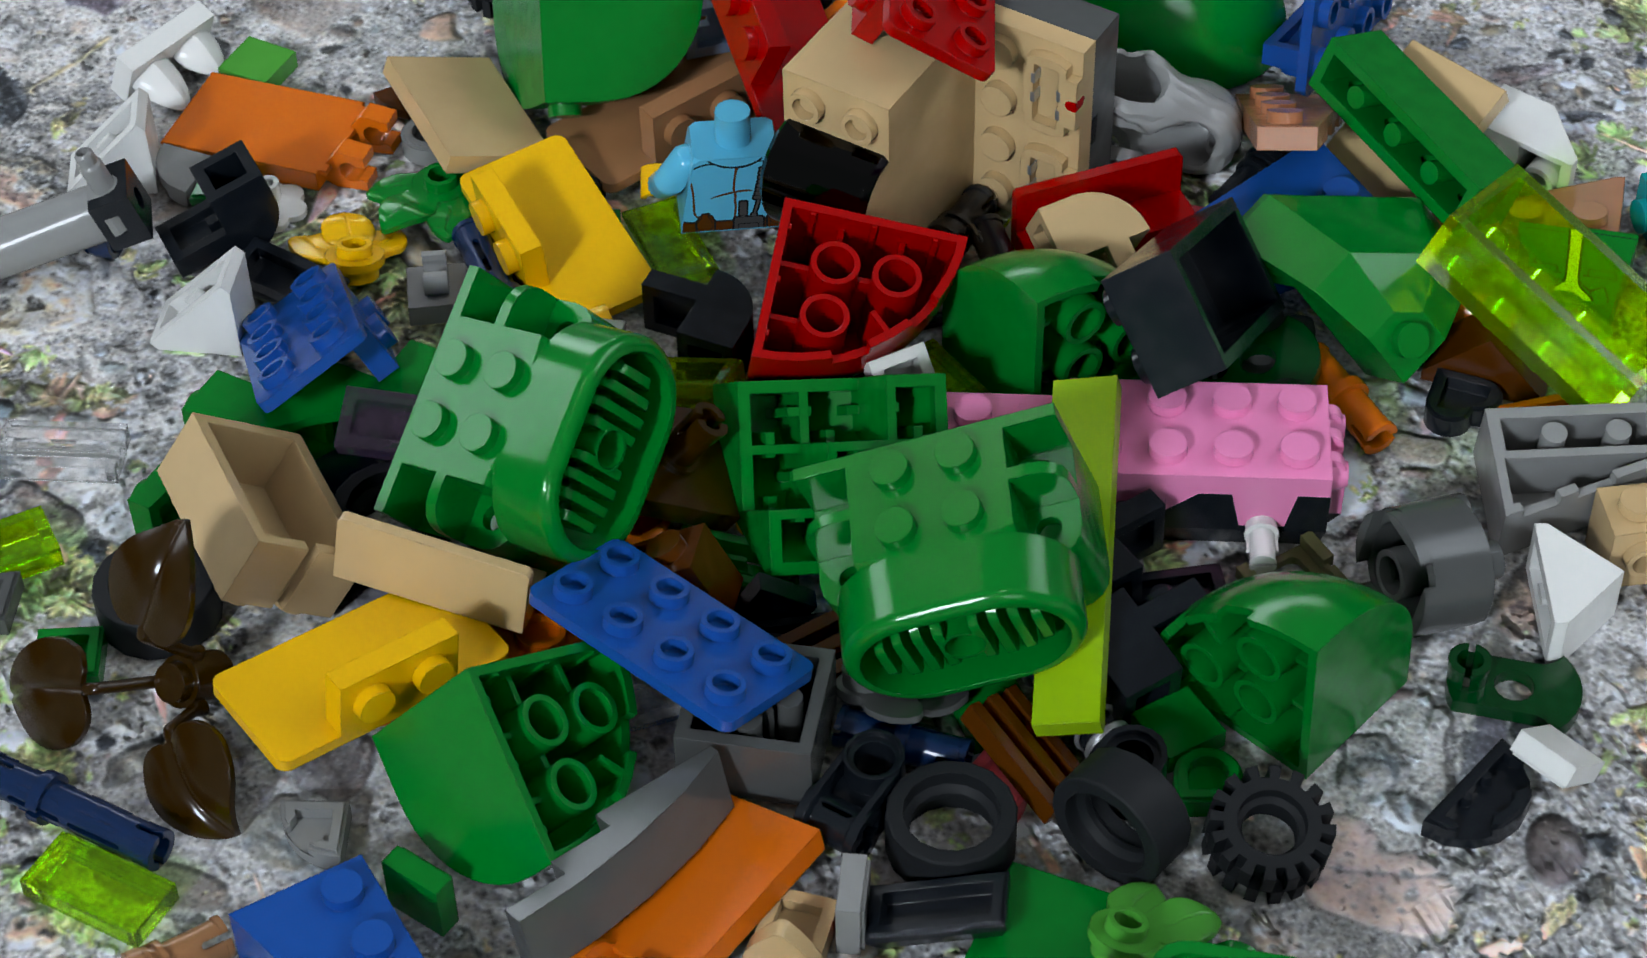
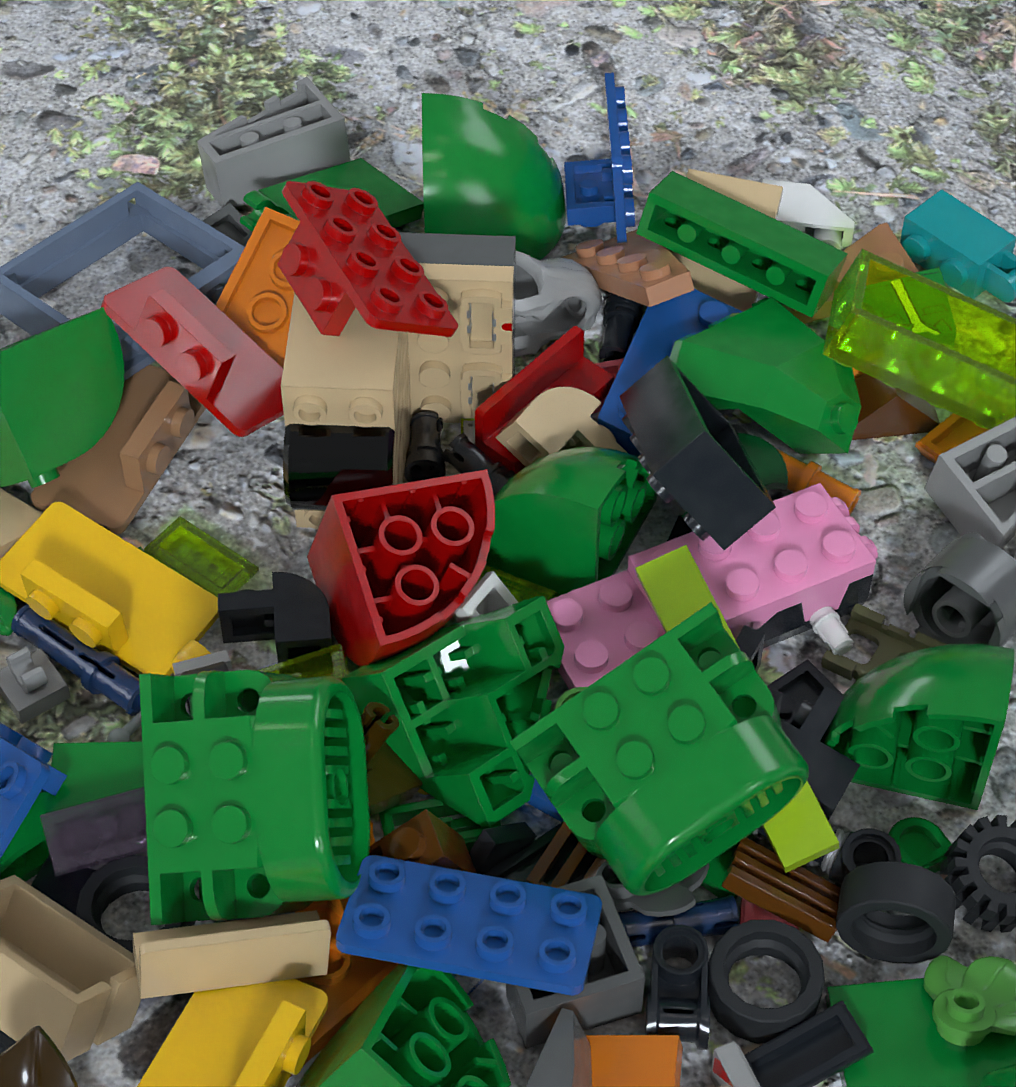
camera: 30 degrees left, 5 degrees up
(716, 172) = (223, 485): medium azure torso -> none
(1181, 723) = (867, 806): green tile -> none
(1458, 402) = (884, 450): black tile -> none

